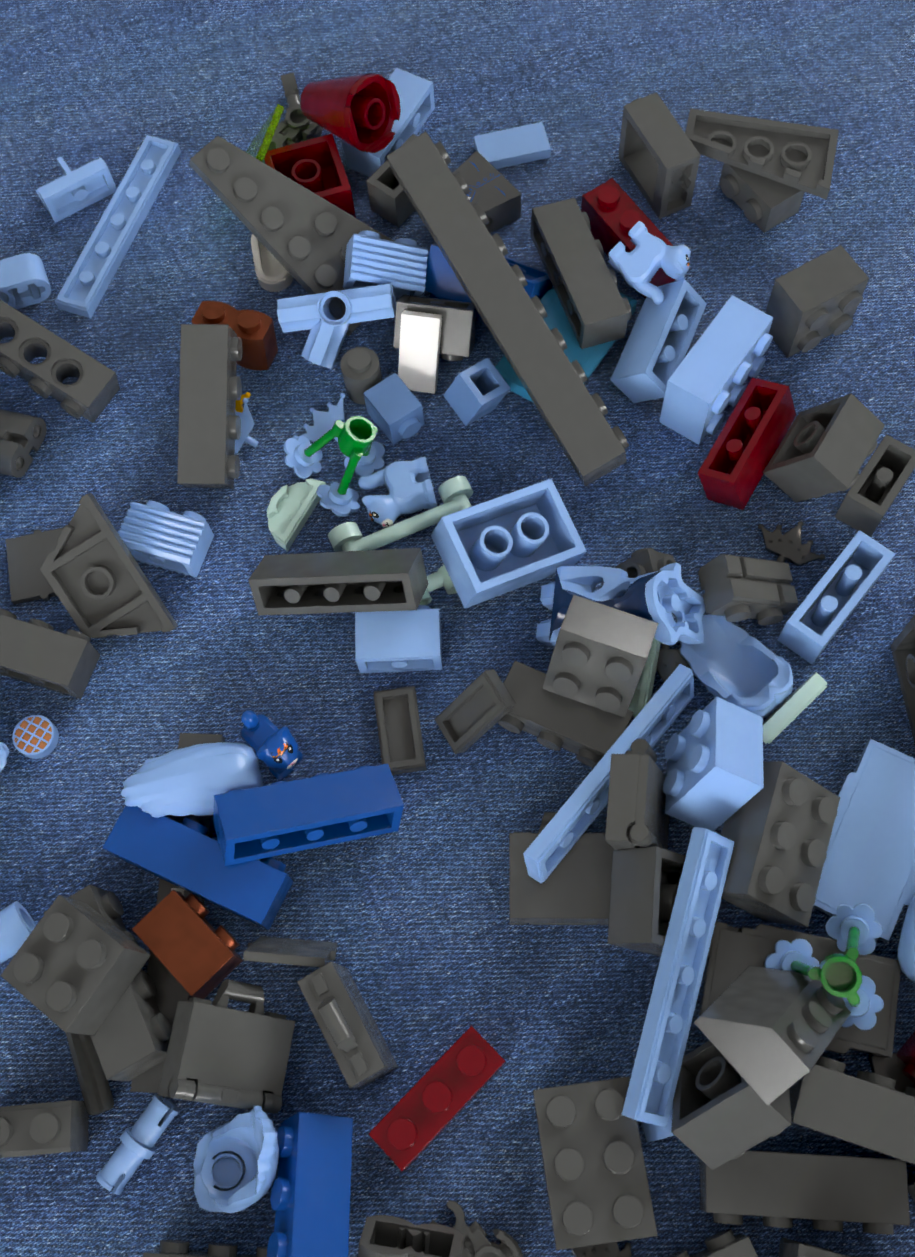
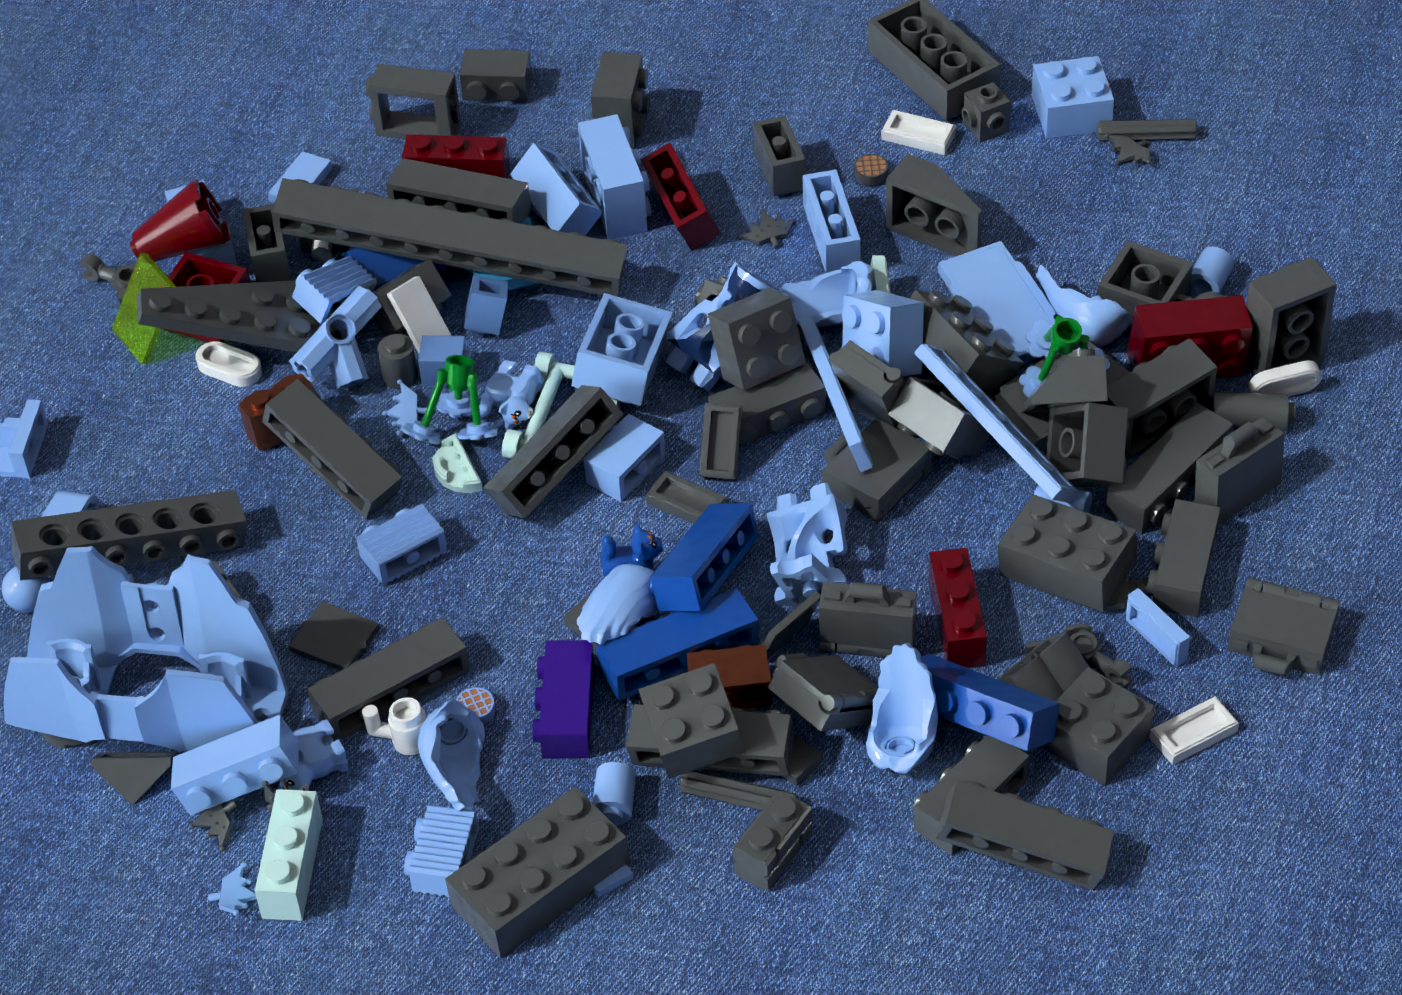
camera: 55 degrees left, 20 degrees down
(75, 814) = (565, 699): none -> dark purple brick
(101, 578) = (398, 587): dark grey wing -> none
(118, 227) = (85, 436): light blue tile -> none
(137, 1144) = (836, 791): light blue pin -> none
(423, 897) = (808, 559): none -> light blue hips
(645, 260) = (496, 150): light blue animal -> none
(747, 589) = (781, 256): dark grey brick -> none
(770, 148) = (485, 43): dark grey wing -> none
(824, 449) = (728, 160): dark grey brick -> none

